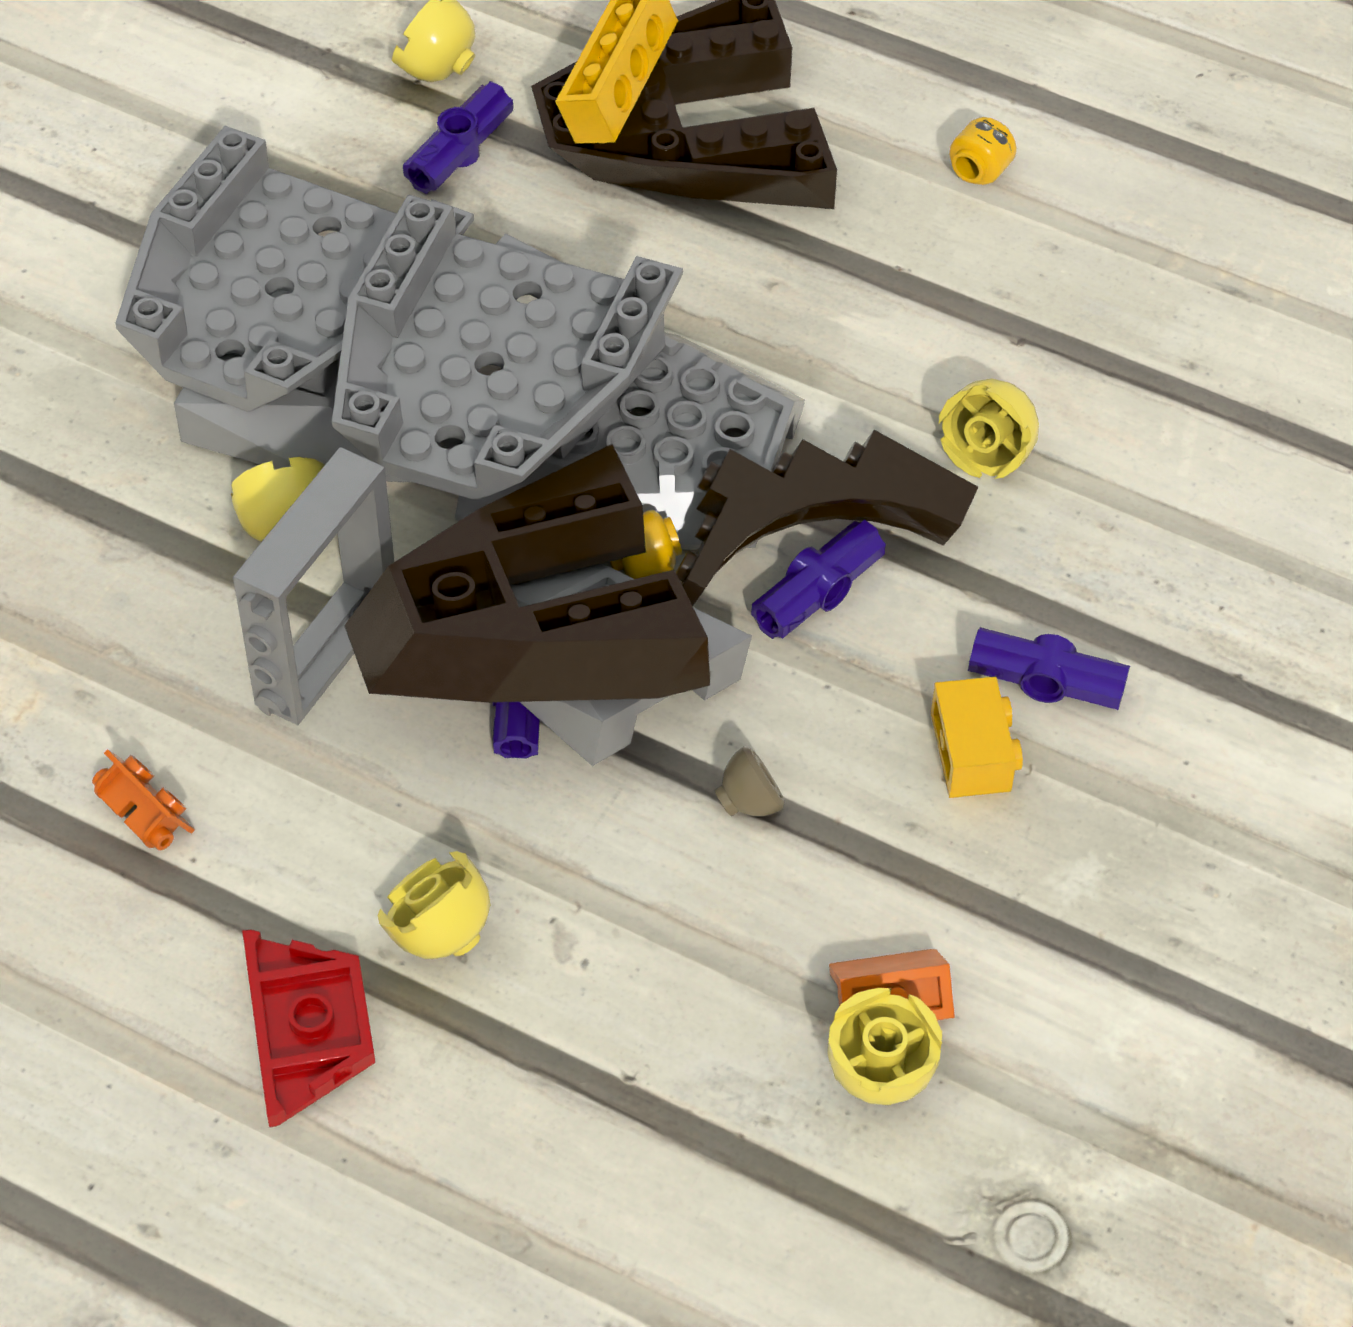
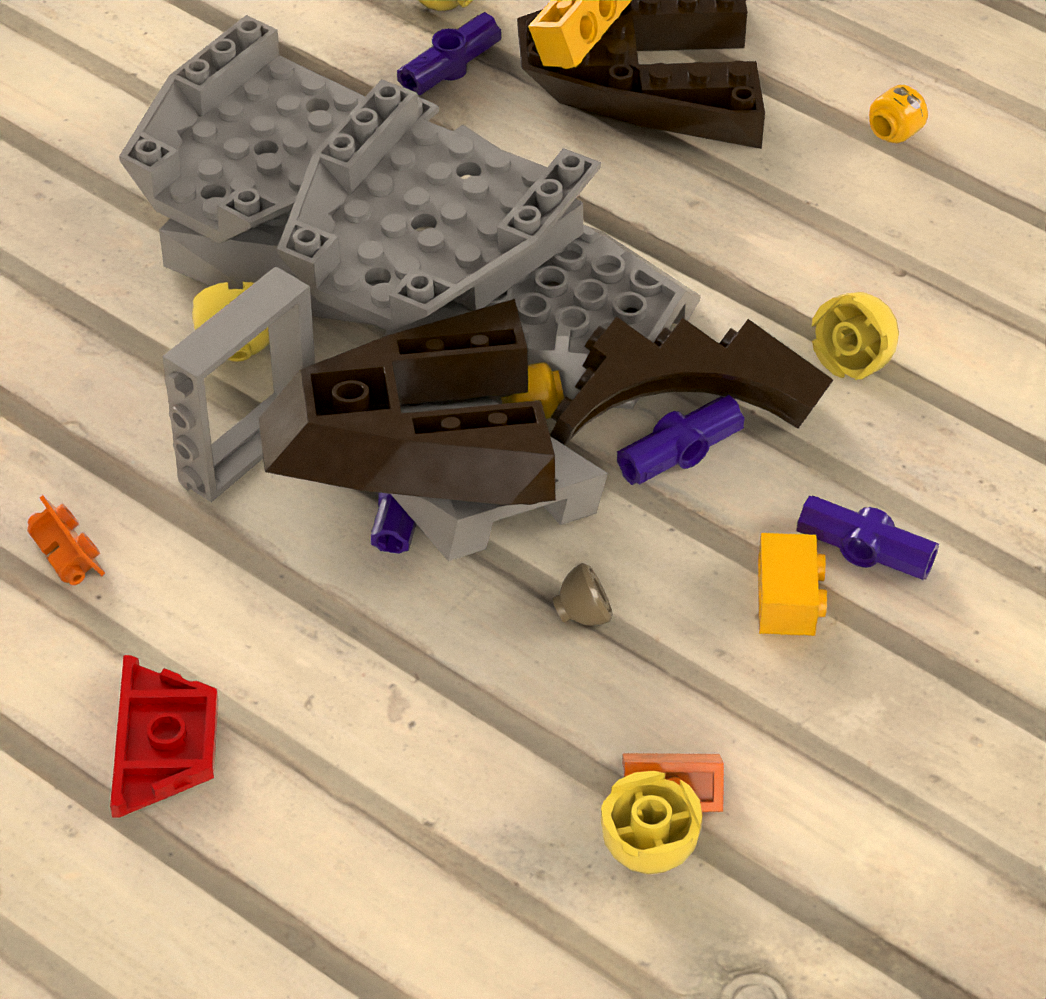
camera: 10 degrees right, 5 degrees down
(438, 909) = (292, 660): light yellow cylinder -> none

